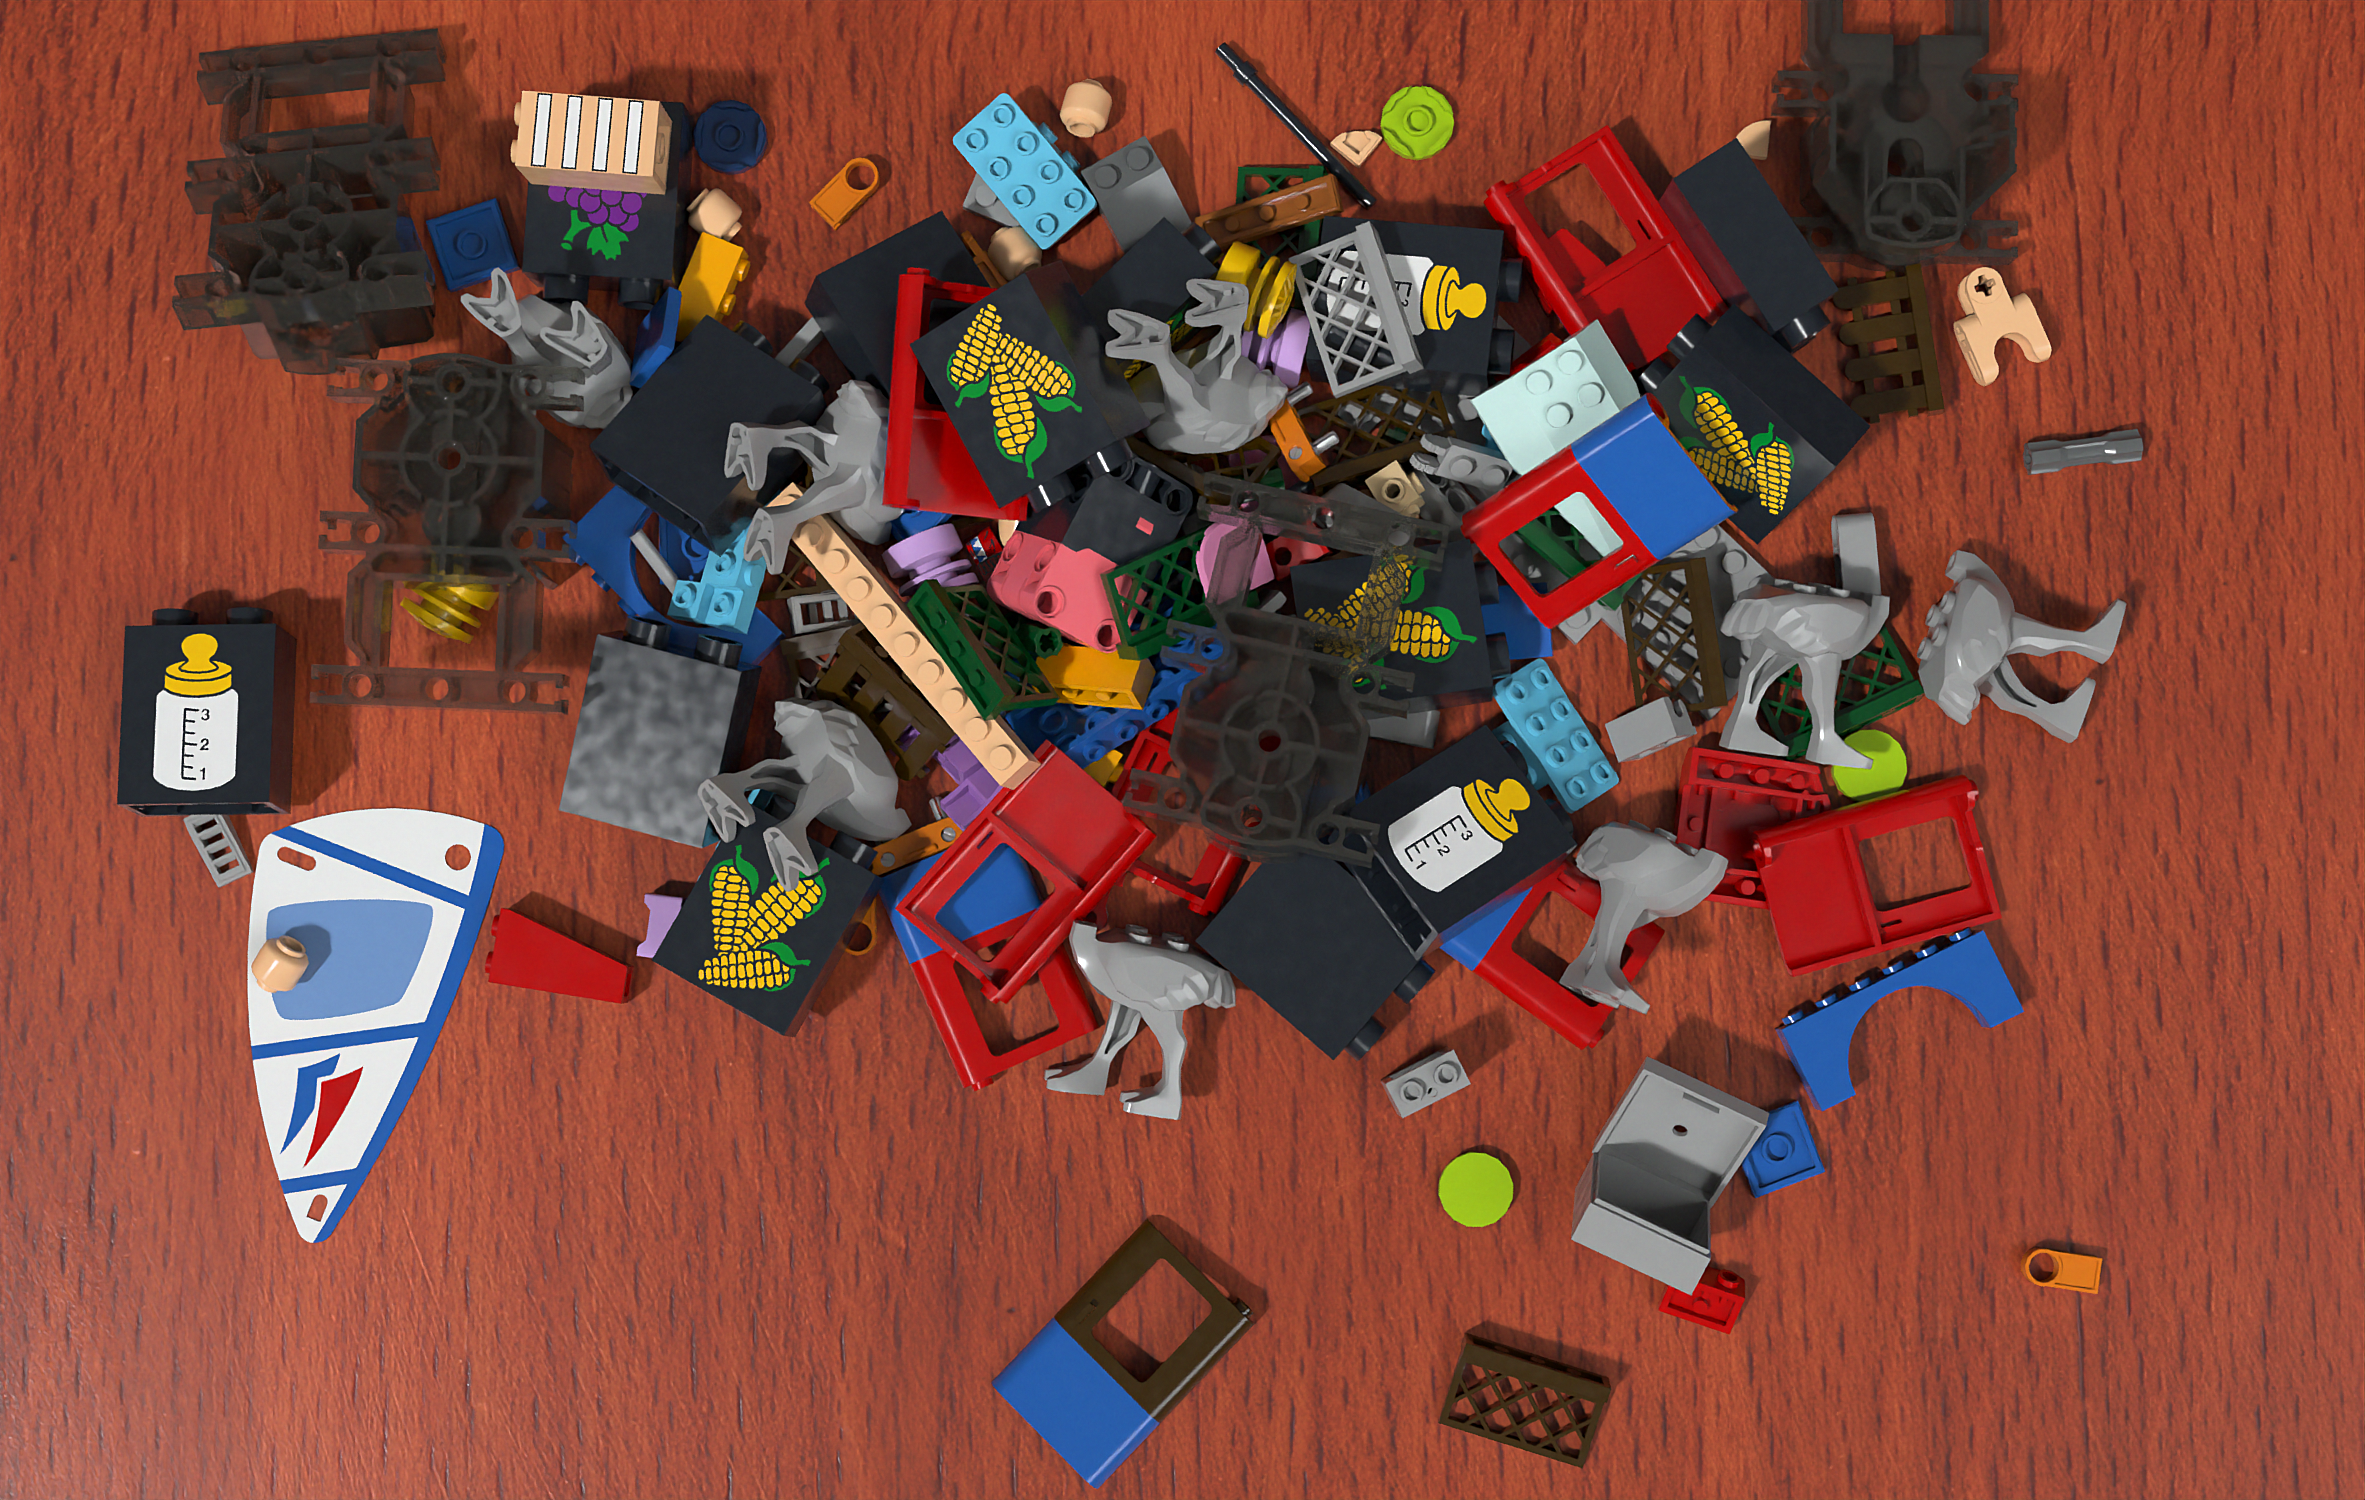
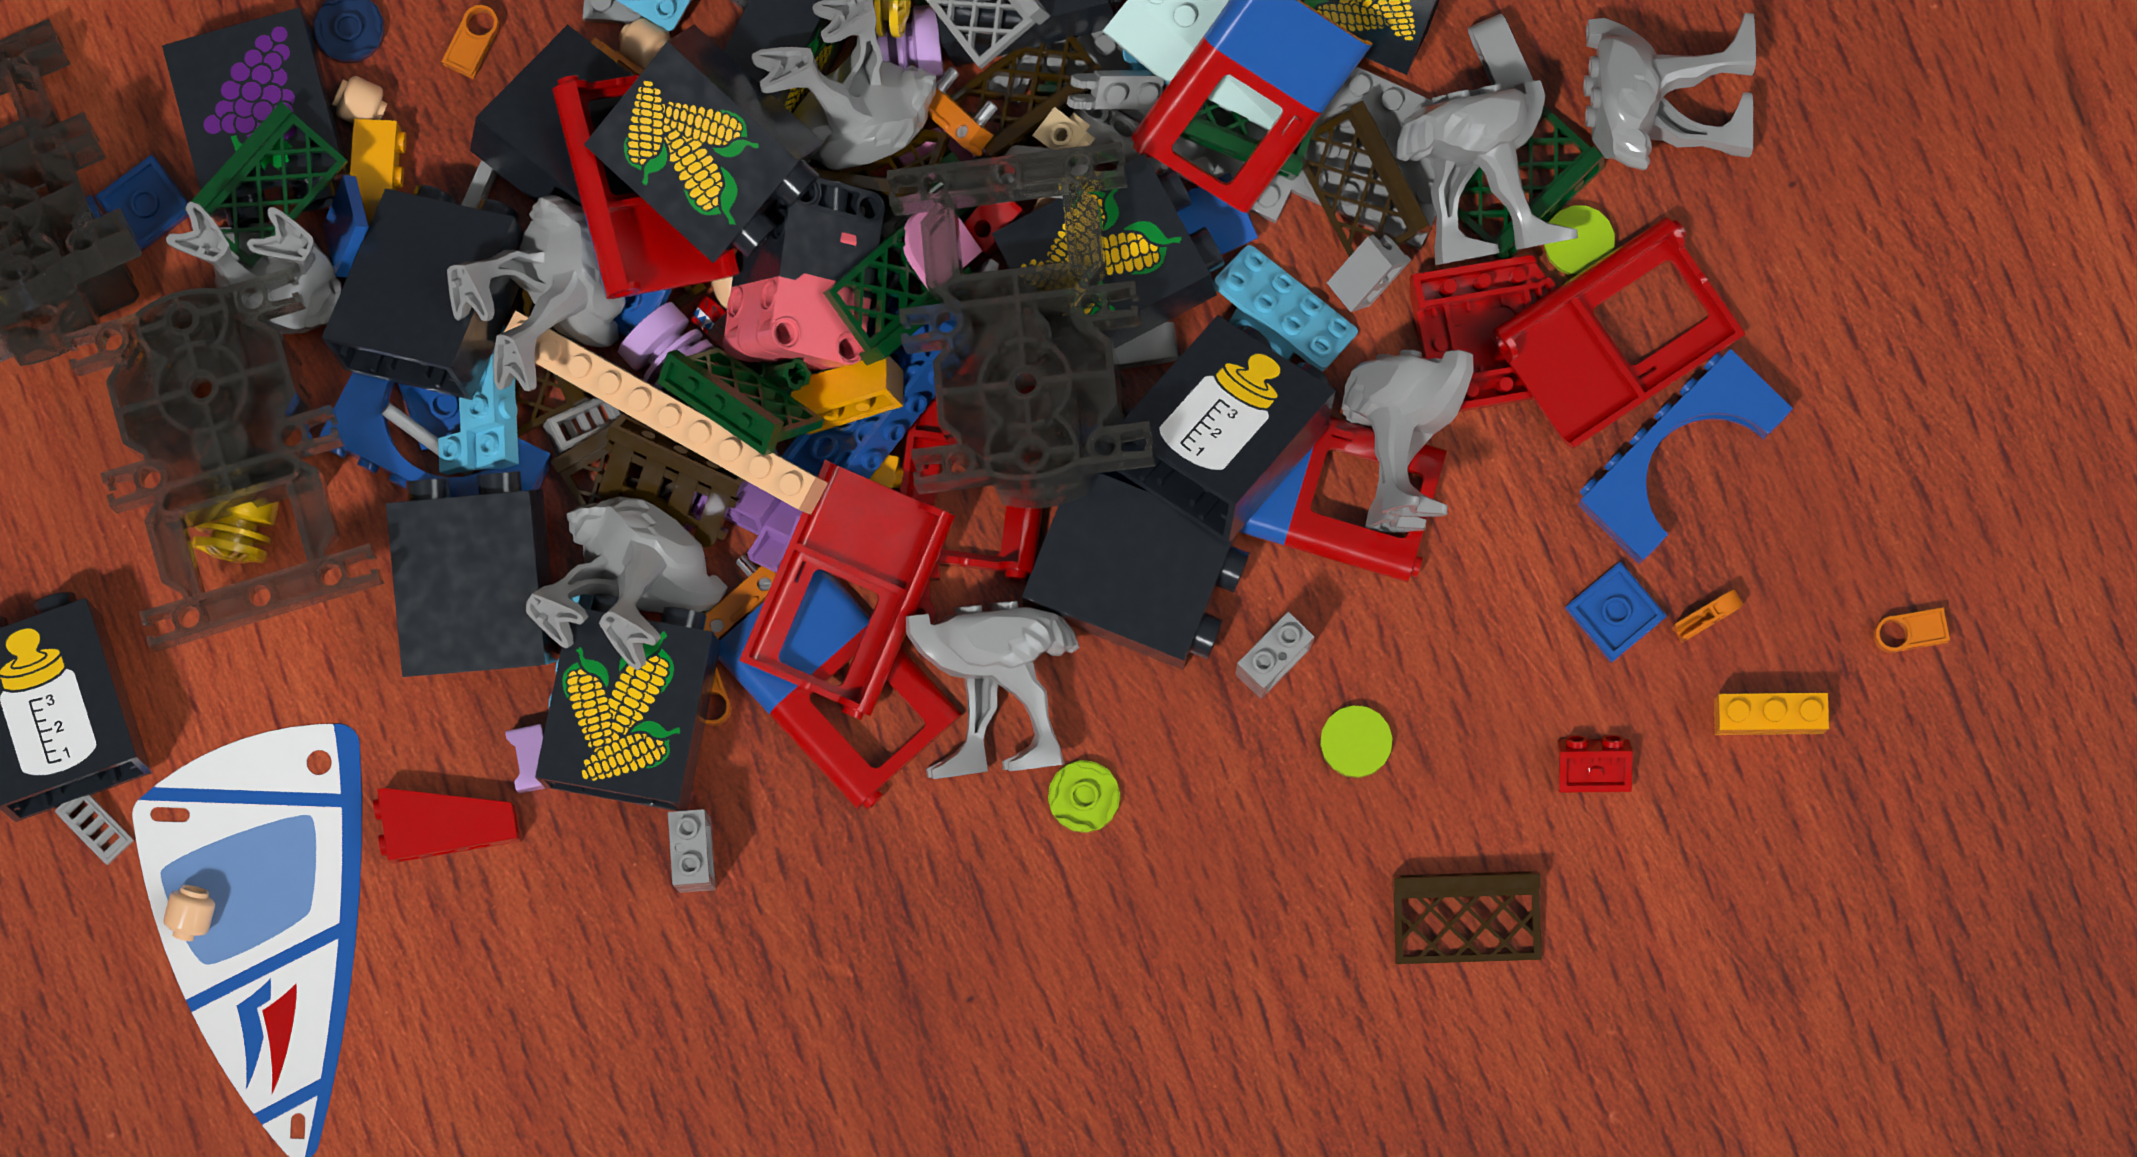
camera: 20 degrees left, 5 degrees down
(574, 241) = (248, 158): none -> dark green fence
(592, 142) = (232, 67): light nougat brick -> none
(791, 1068) = (694, 858): none -> light grey window
(1083, 1394) = (1067, 1050): piece -> none
(1192, 1139) = (1084, 796): none -> lime tile
(1654, 1187) = (1515, 677): light grey container -> none
(1865, 1186) = (1707, 615): none -> orange piece
(1895, 1306) = (1771, 713): none -> light orange brick

